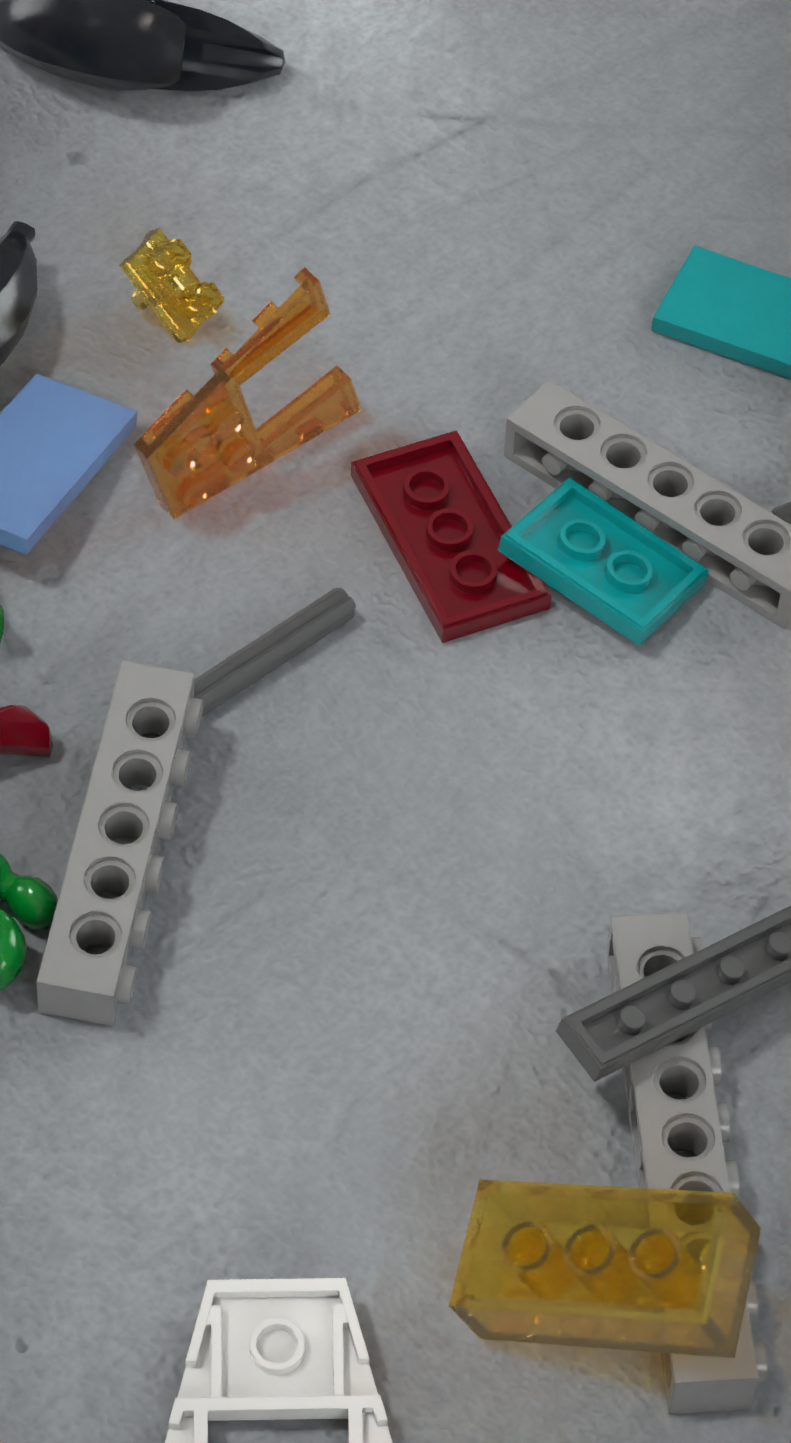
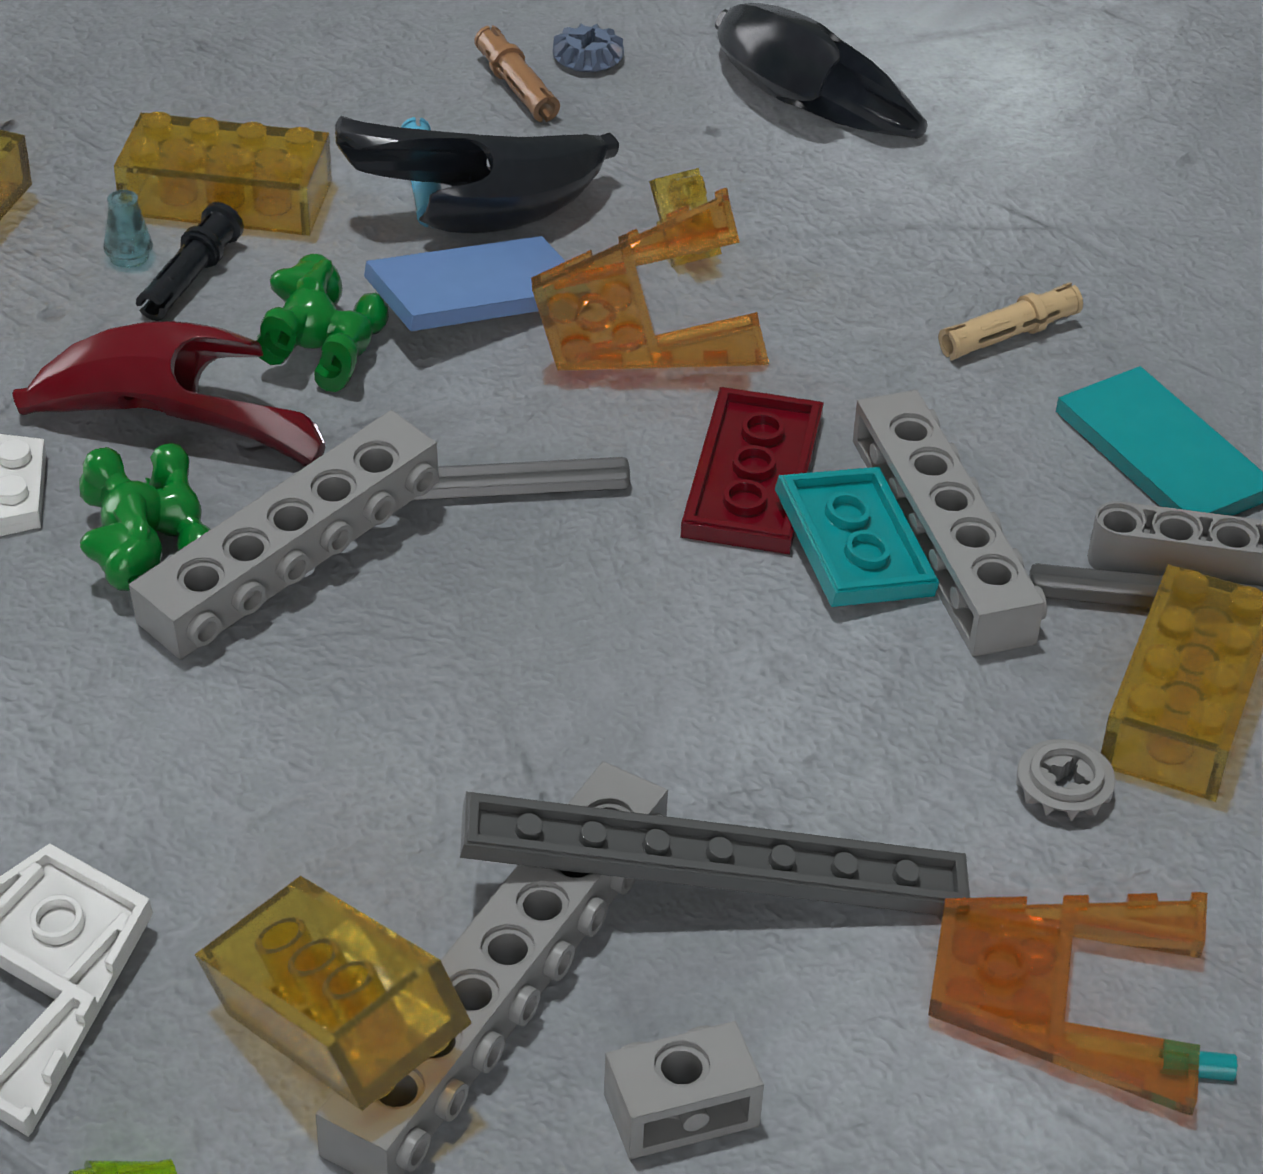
camera: 35 degrees right, 10 degrees down
(554, 239) = (1028, 314): none -> tan pin

